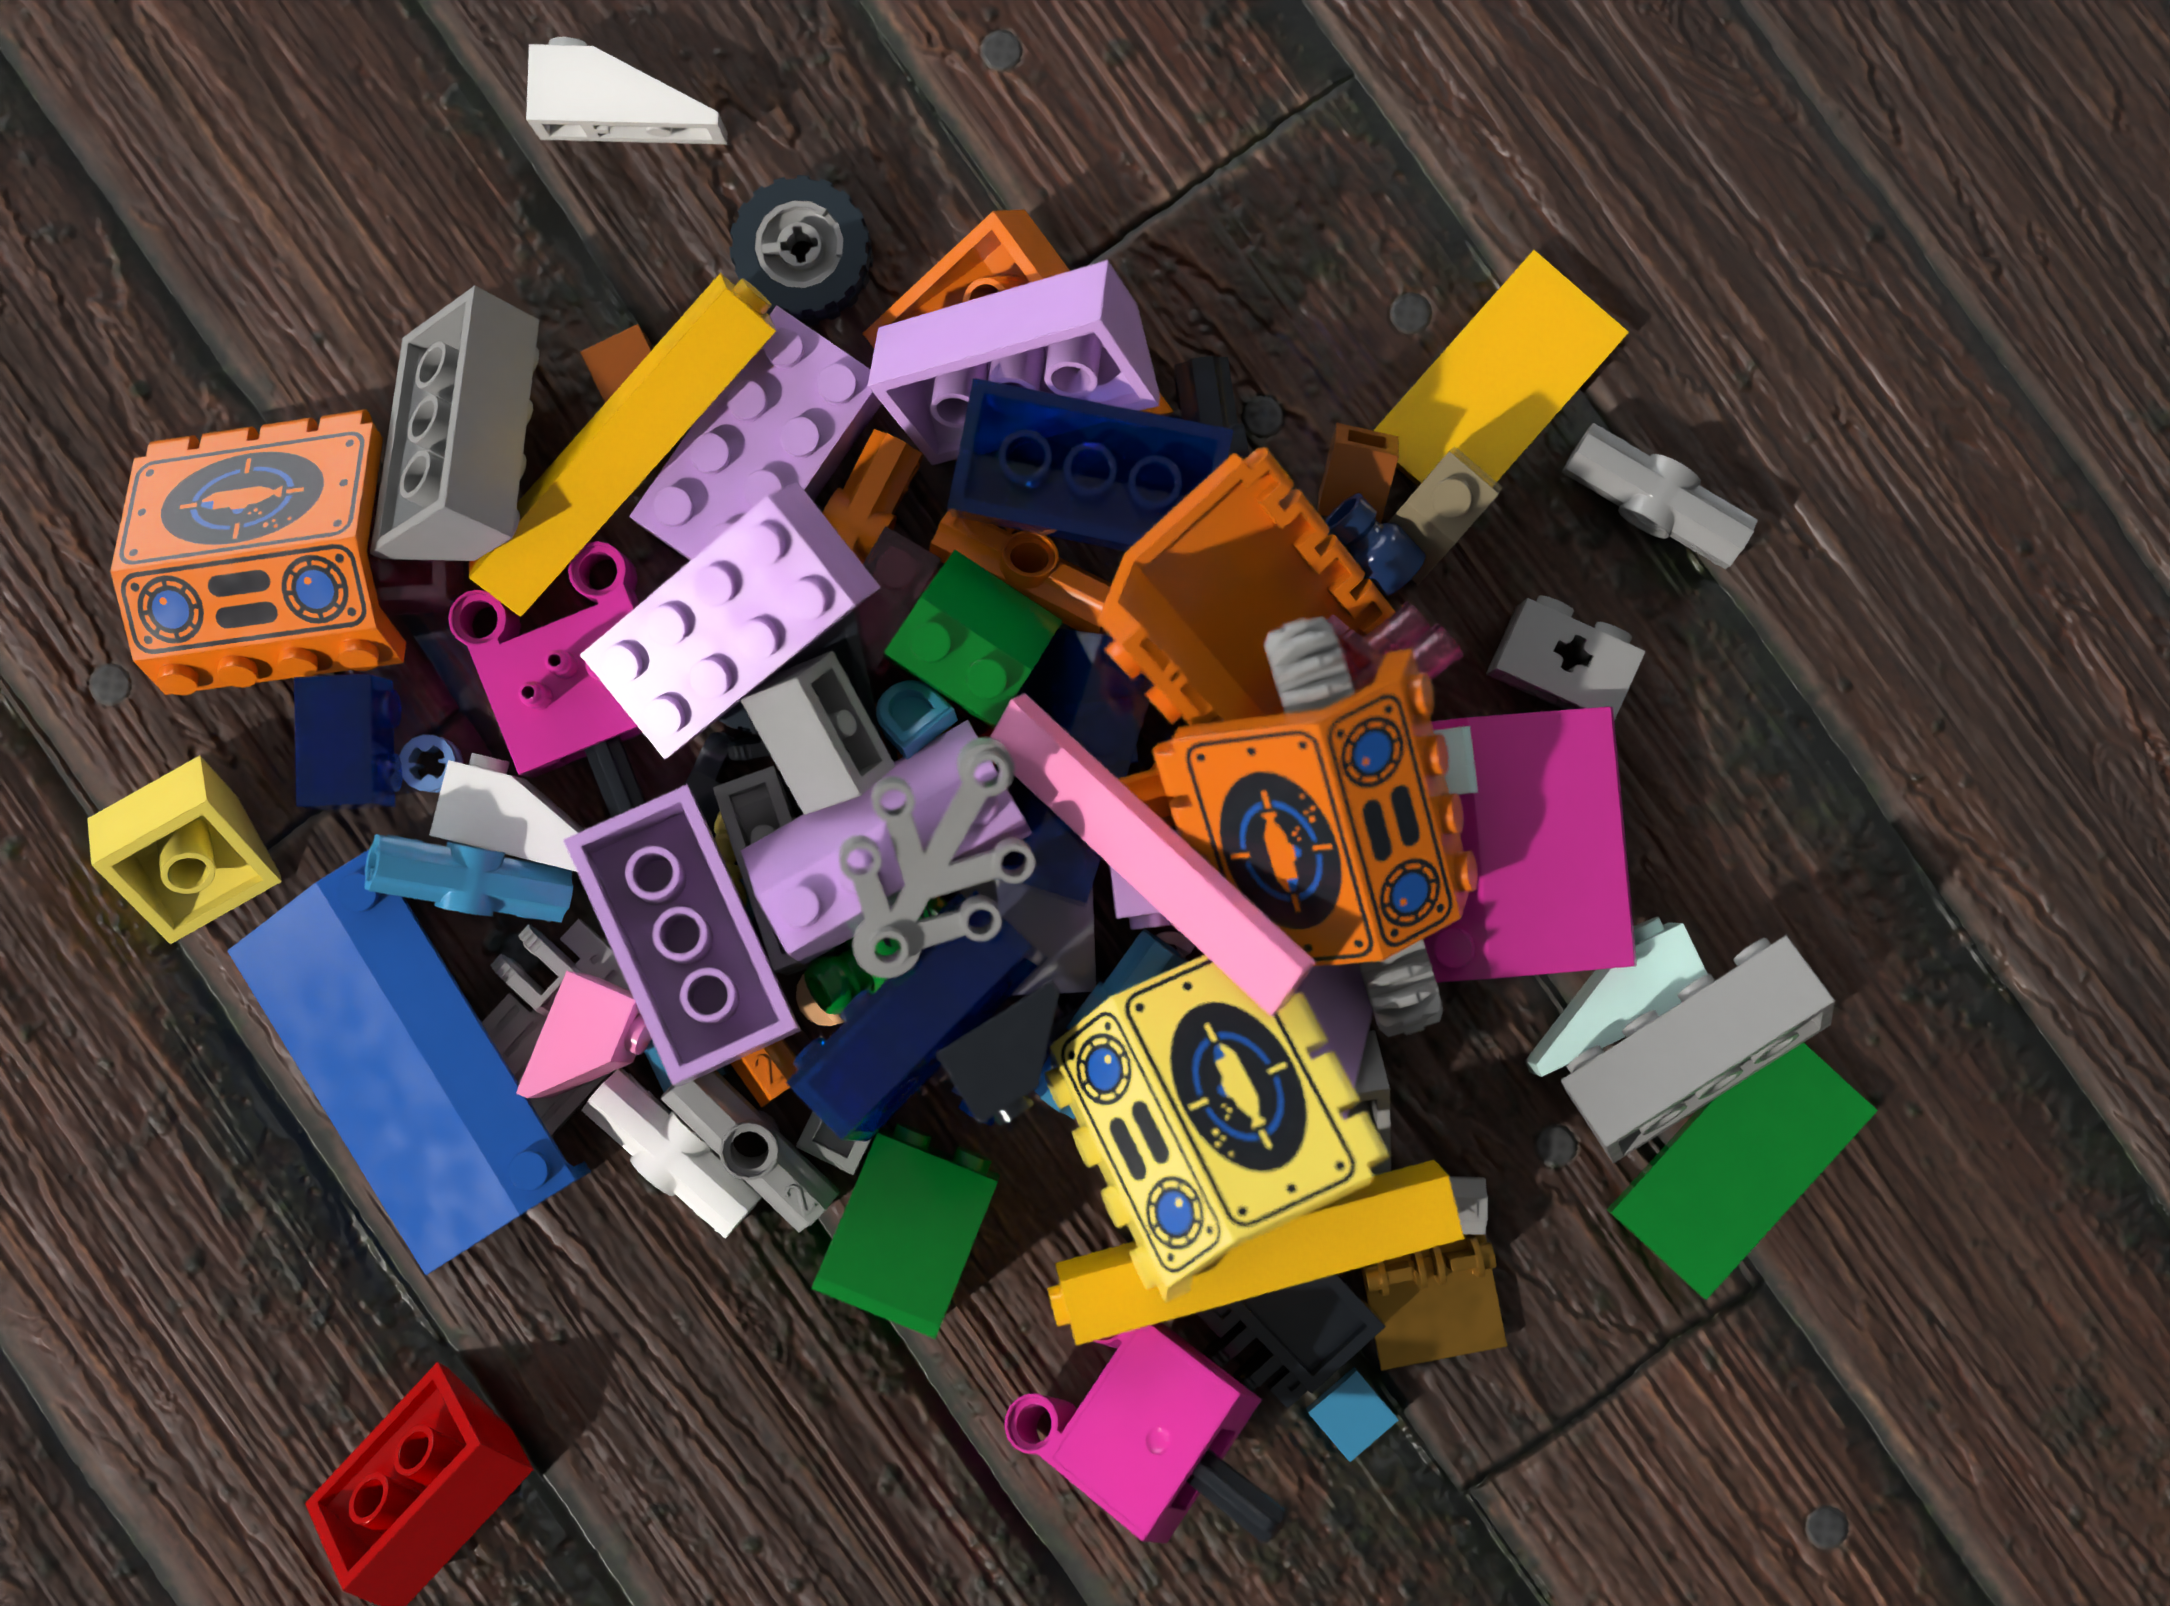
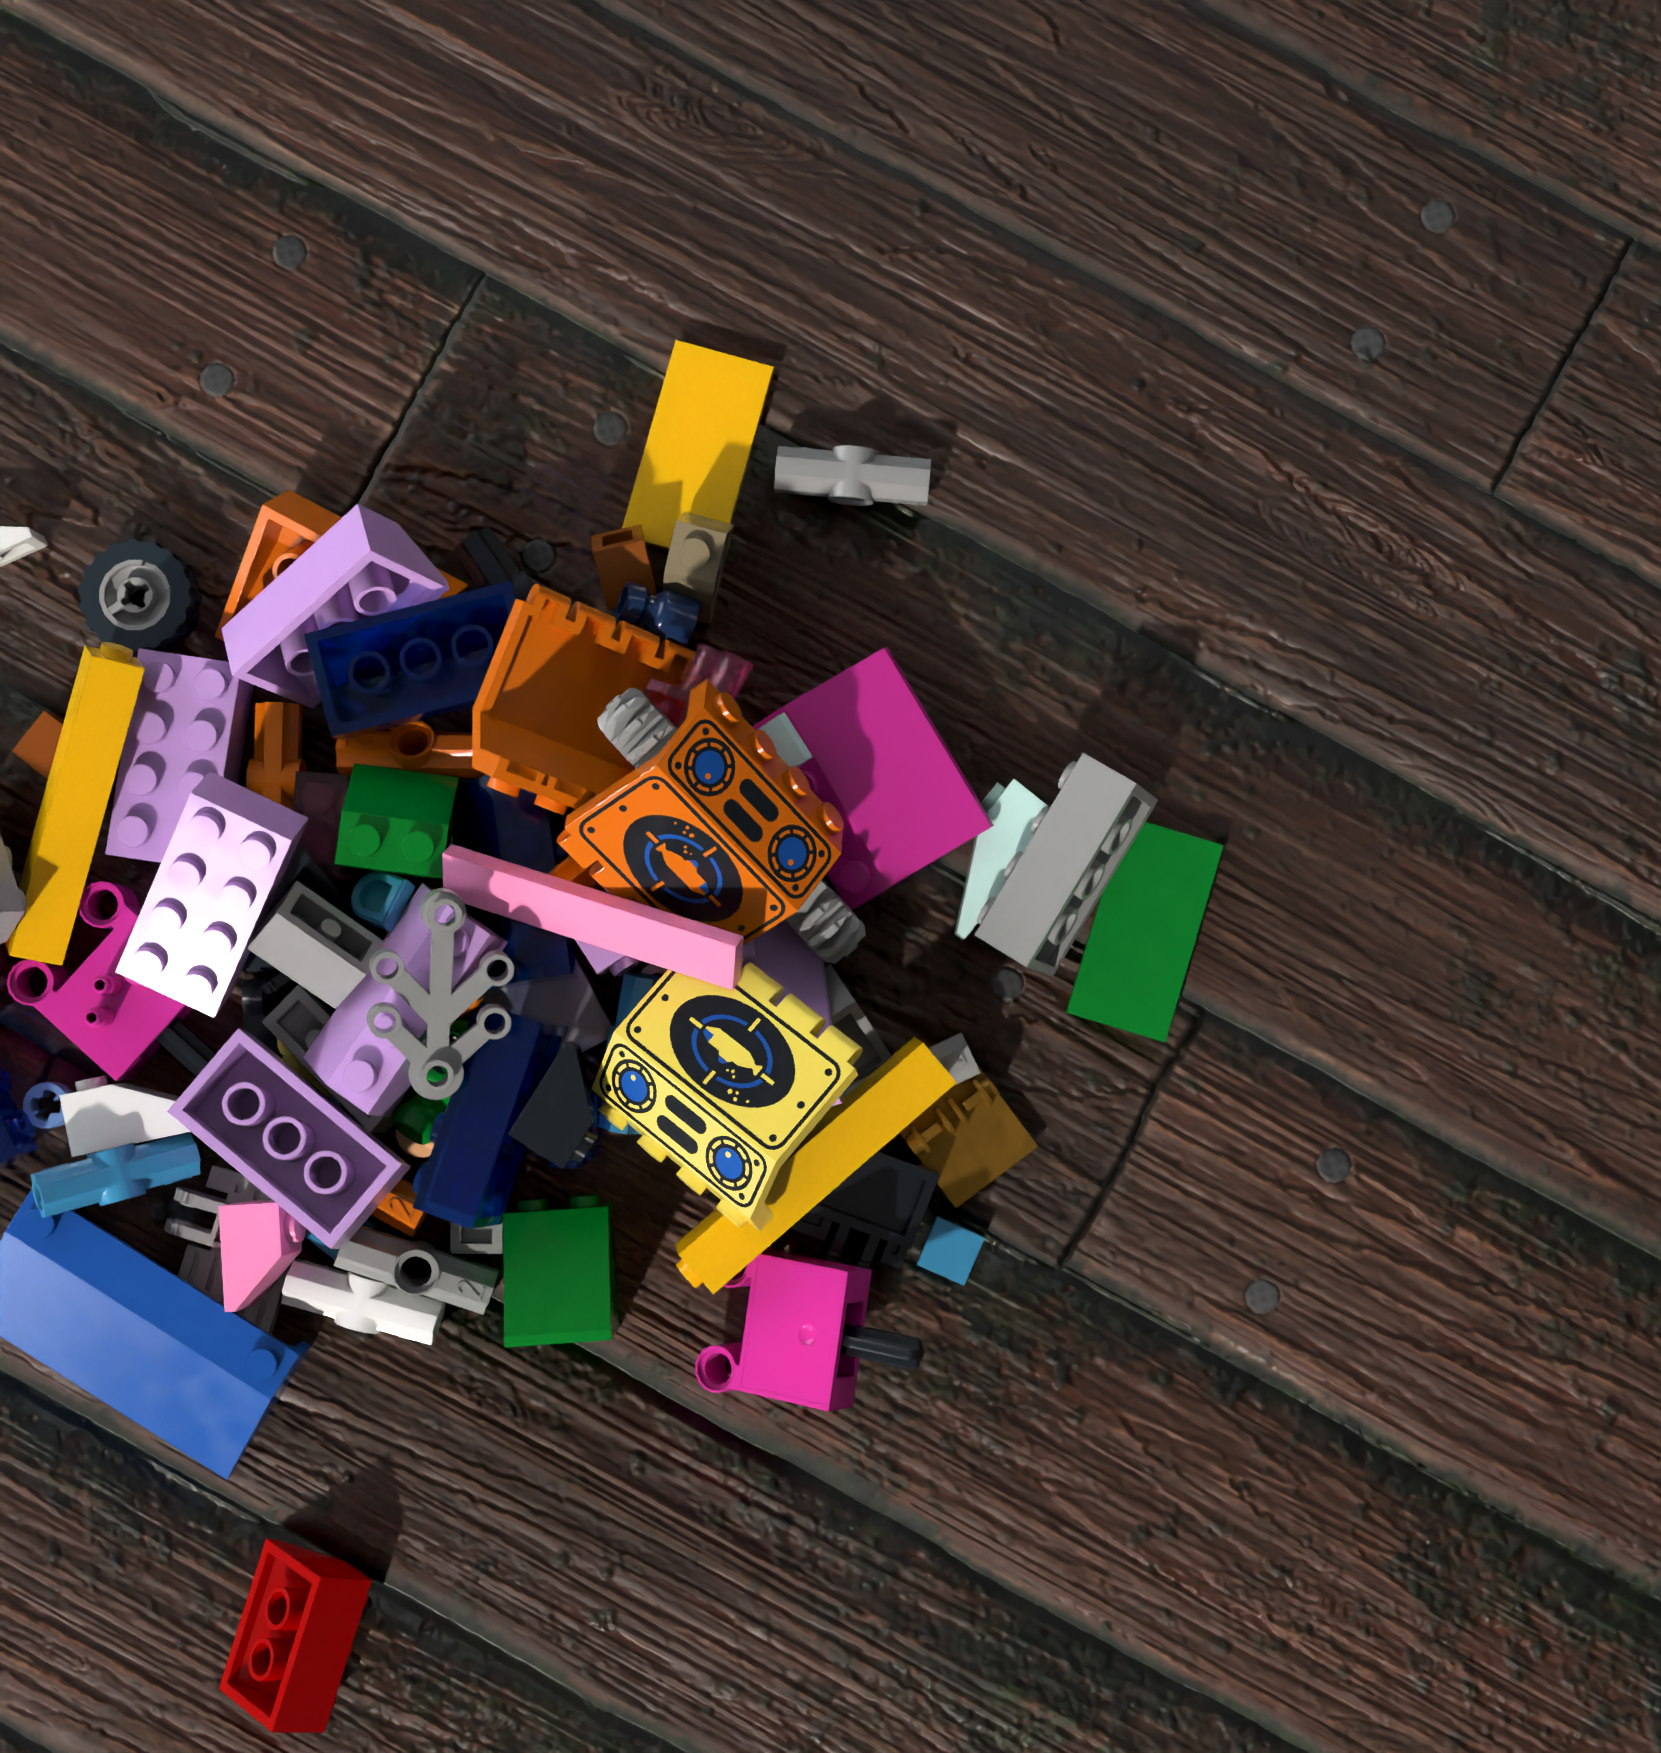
camera: 25 degrees left, 0 degrees up
(1529, 664) = (819, 645): light grey brick -> none

